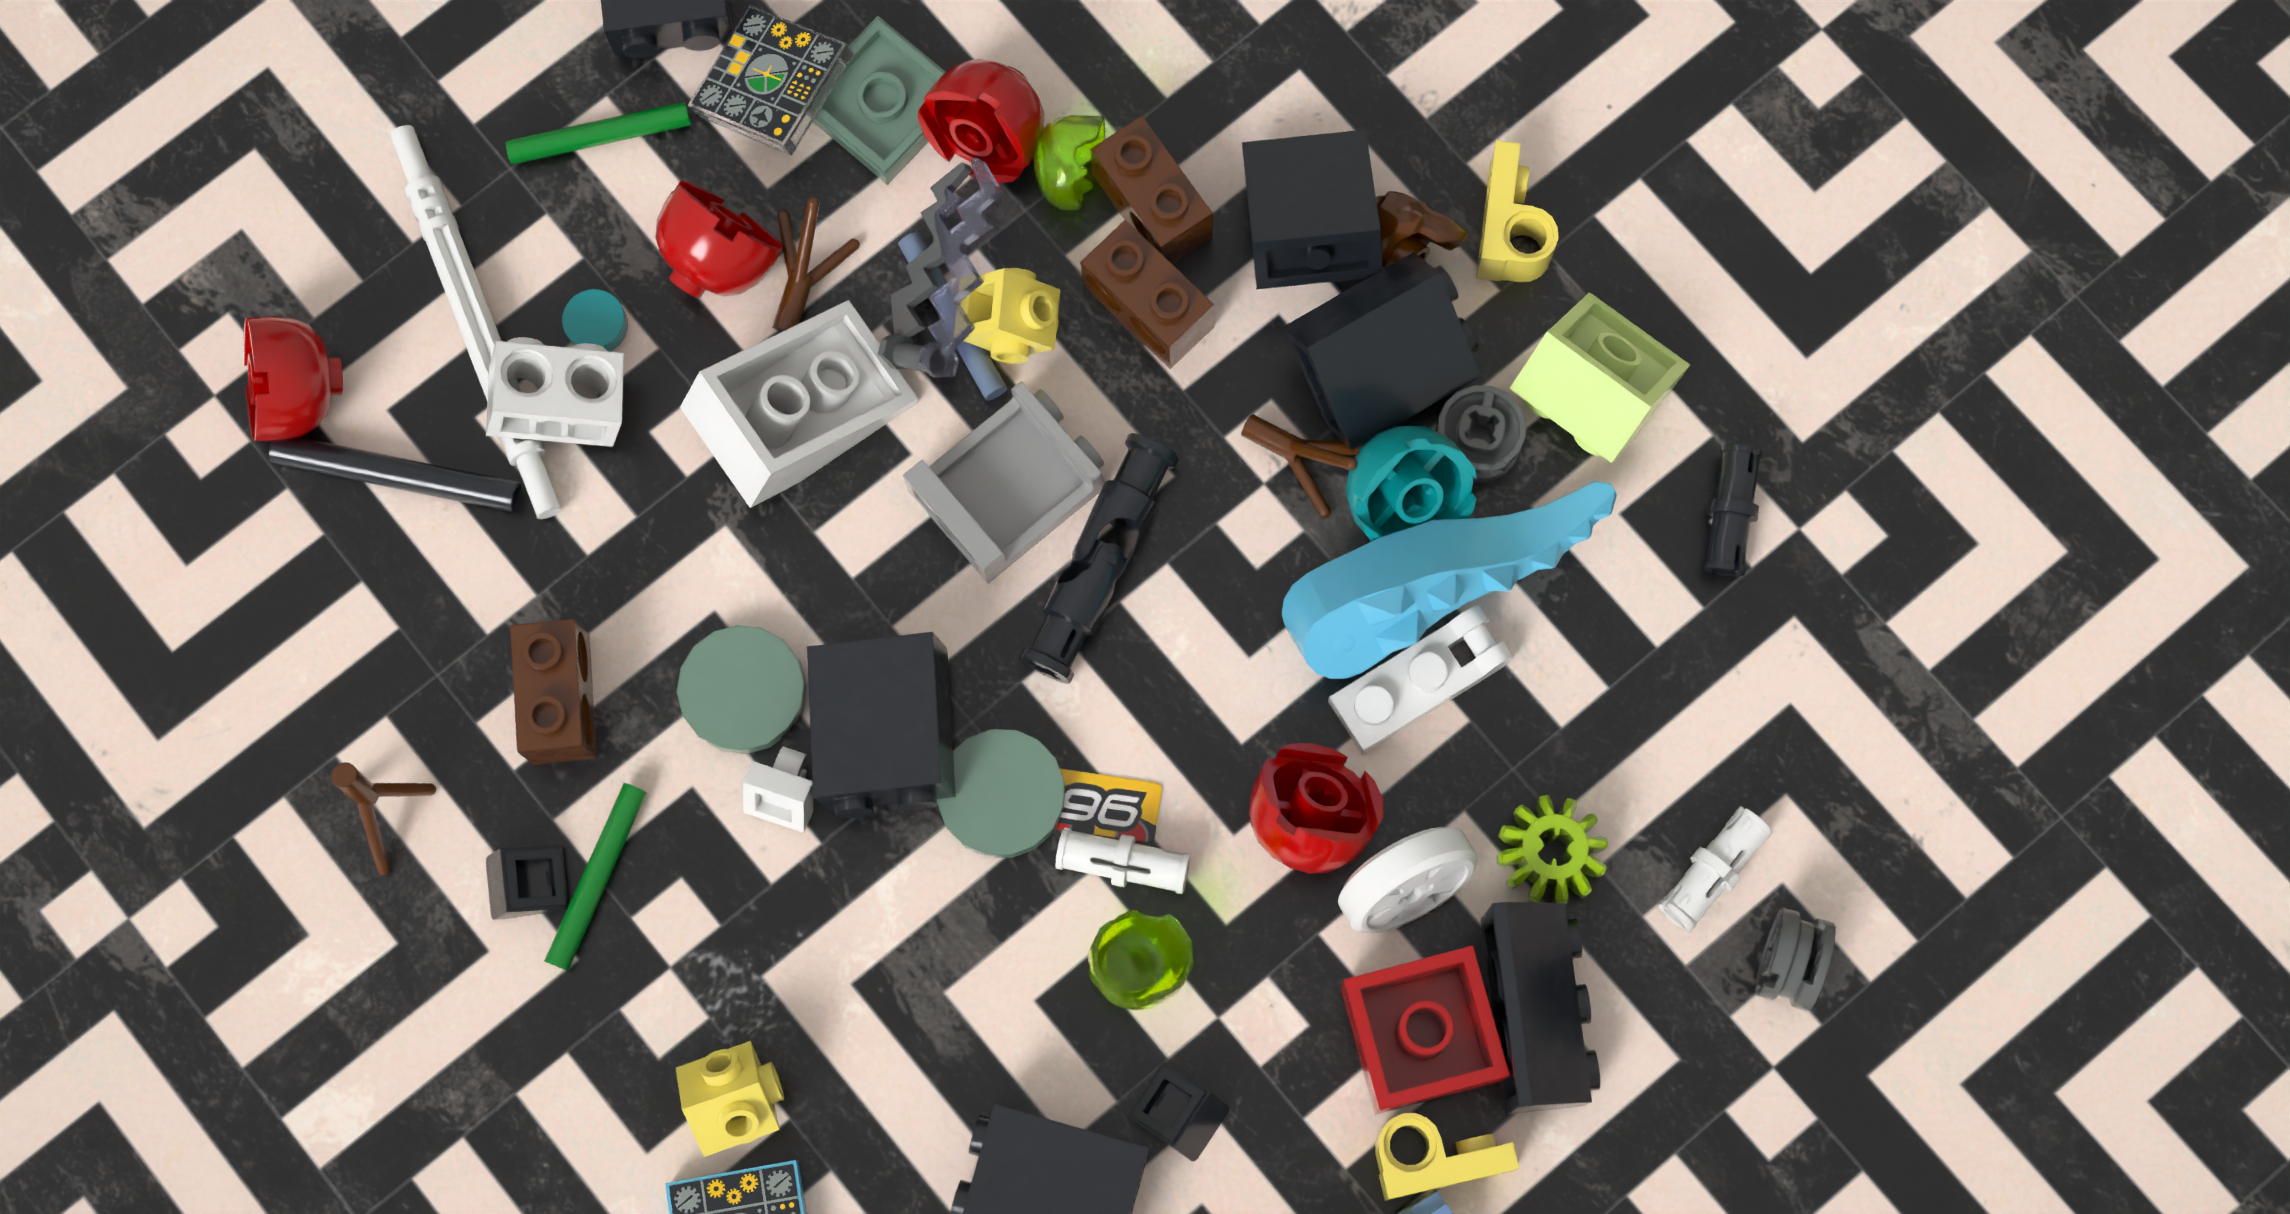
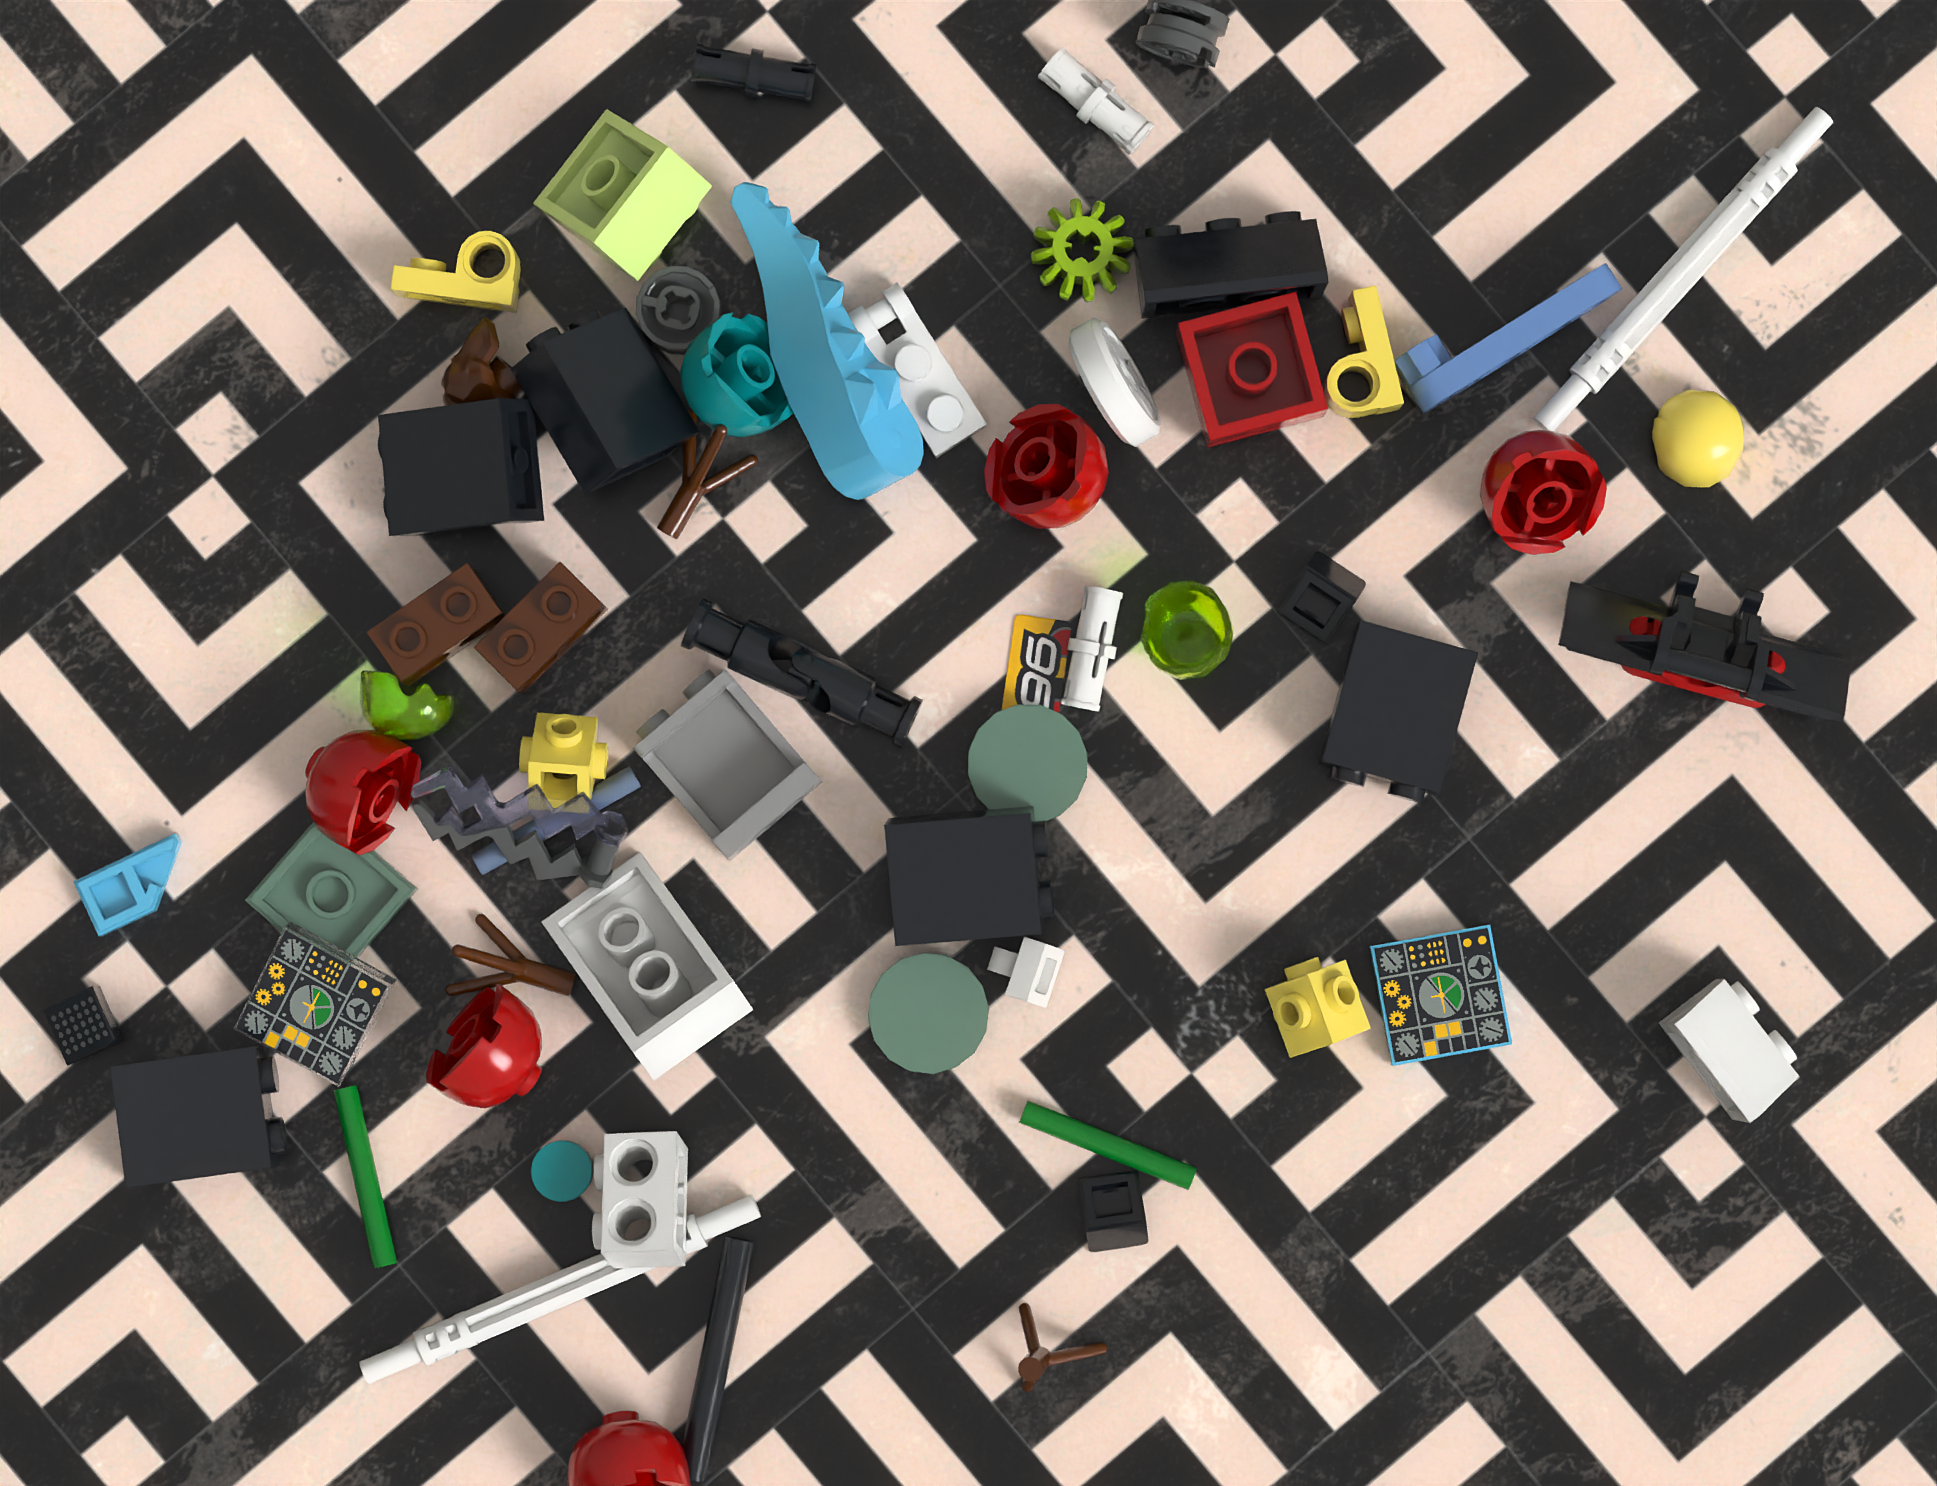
camera: 90 degrees left, 10 degrees up
(553, 692) = (935, 1189): reddish brown brick -> none

